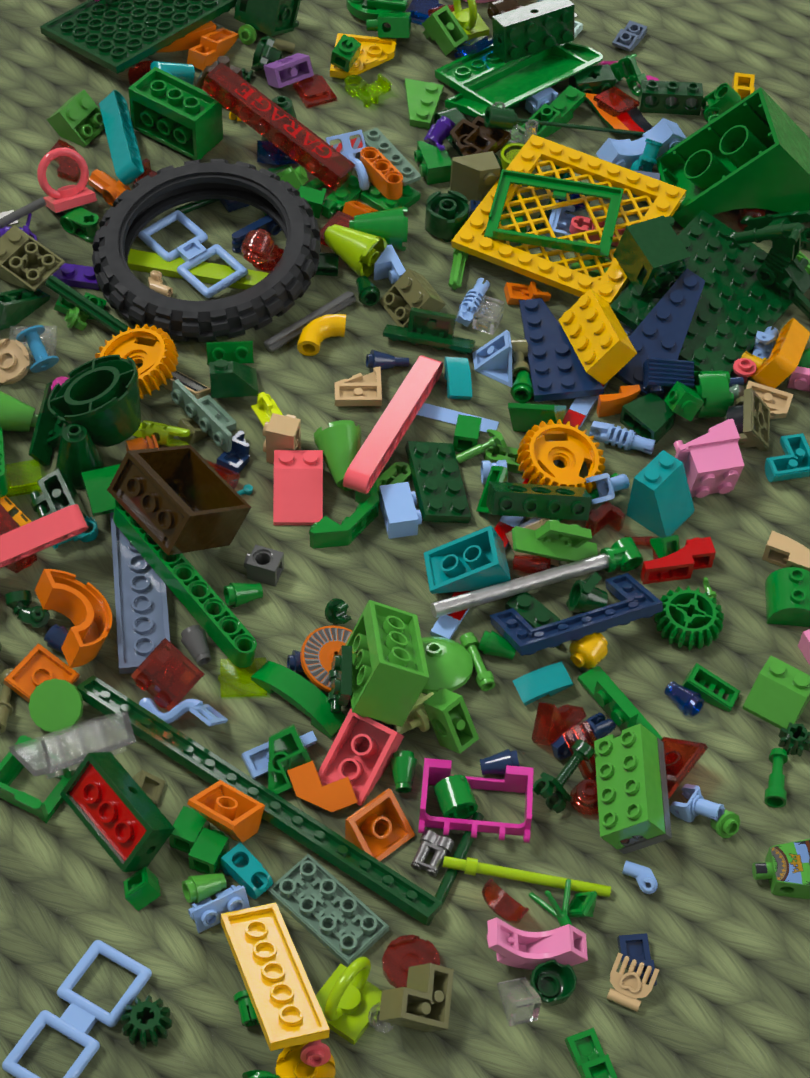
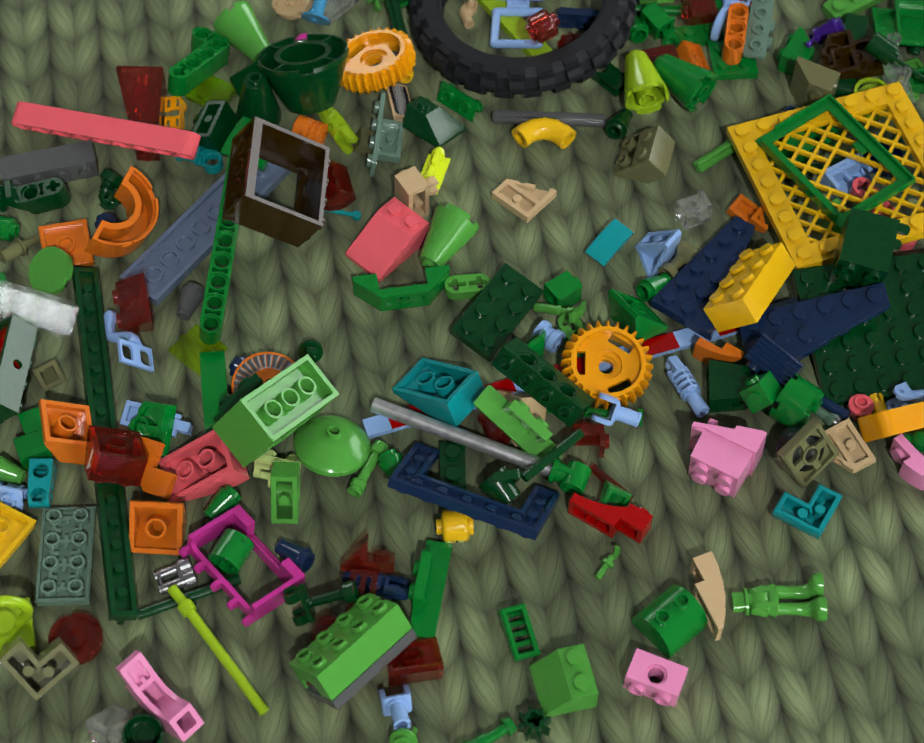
camera: 45 degrees right, 5 degrees up
(238, 456) = (377, 185): dark blue slope -> none
(241, 593) = (261, 288): green cone -> none
(264, 565) = (298, 279): dark grey brick -> none
(293, 797) = (114, 456): none -> clear red slope
(384, 360) = (567, 189): dark blue cone -> none
(388, 265) = (658, 112): light blue slope -> none
(392, 425) = (507, 241): coral beam -> none
(399, 510) = (441, 311): light blue brick -> none
(430, 329) = (630, 190): dark green bracket -> none
(446, 214) = (753, 100): dark green brick -> none
(451, 416) = (568, 262): light blue sticker -> none
(471, 302) = (691, 188): light blue hinge -> none
(502, 903) = (182, 650): clear red helmet -> none
(542, 682) = (394, 521): teal slope -> none
(561, 915) = (207, 698): green plant -> none
(582, 905) = (230, 704): green slope -> none
(600, 545) = (552, 455): none -> dark green bar
(643, 876) = (300, 723): light blue arm -> none
(661, 496) = (651, 453): teal slope -> none
(685, 699) = (487, 624): clear blue cone -> none
(689, 618) = (561, 573): green gear -> none

